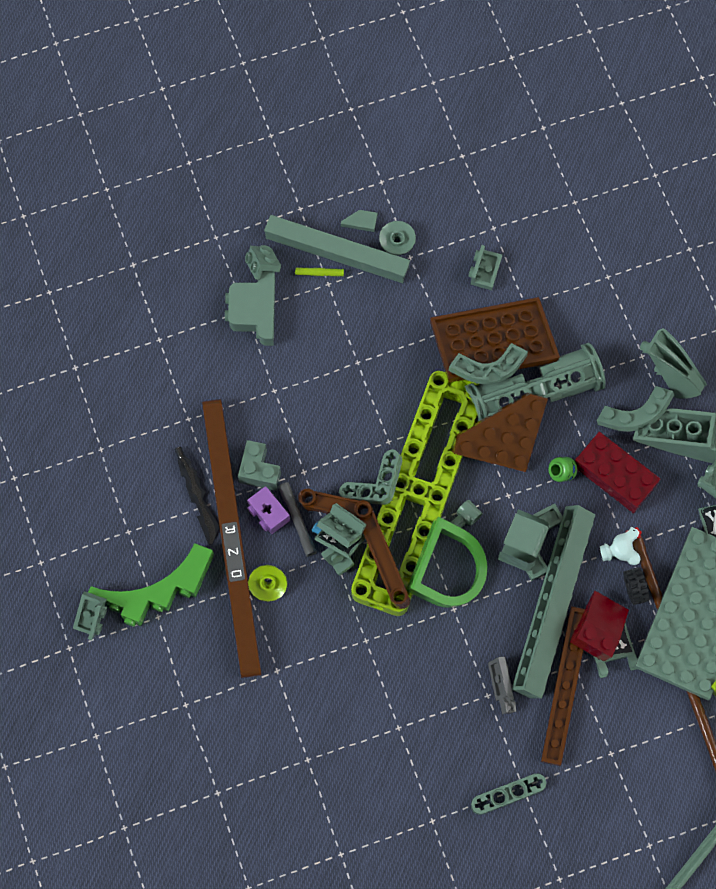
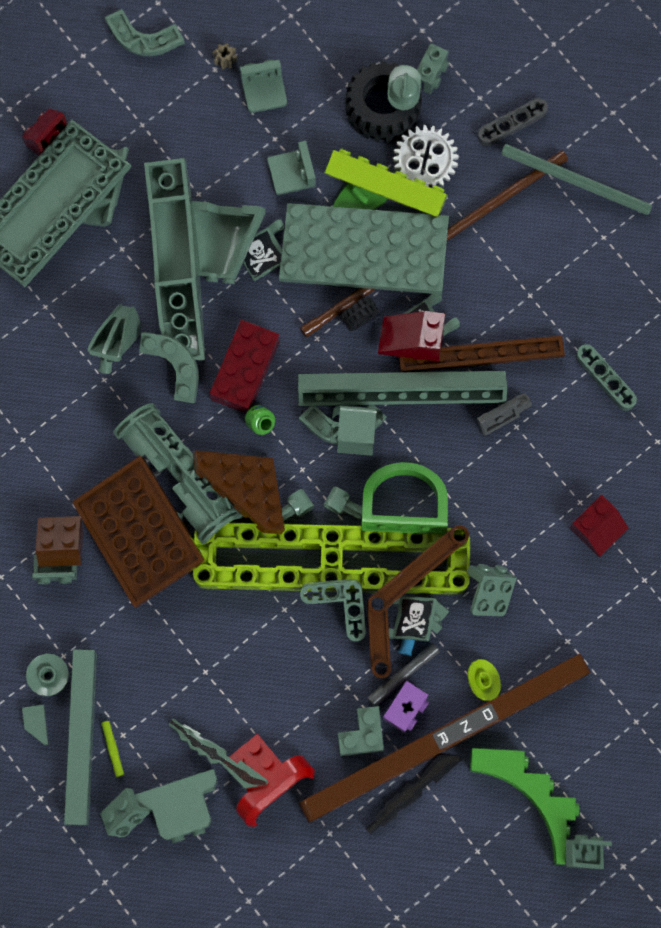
camera: 110 degrees left, 5 degrees up
(252, 378) = (279, 777): none -> red piece
(283, 346) = (241, 772): none -> sand green sword
(342, 526) = (404, 618): sand green bracket -> none
(344, 615) = (492, 591): none -> sand green bracket
(369, 734) = (599, 526): none -> dark red slope
(476, 478) = (297, 504): none -> sand green axle
(491, 372) = (186, 517): sand green plate -> none
(506, 275) = (59, 541): none -> reddish brown brick
(622, 547) = (322, 339): light aqua animal -> none

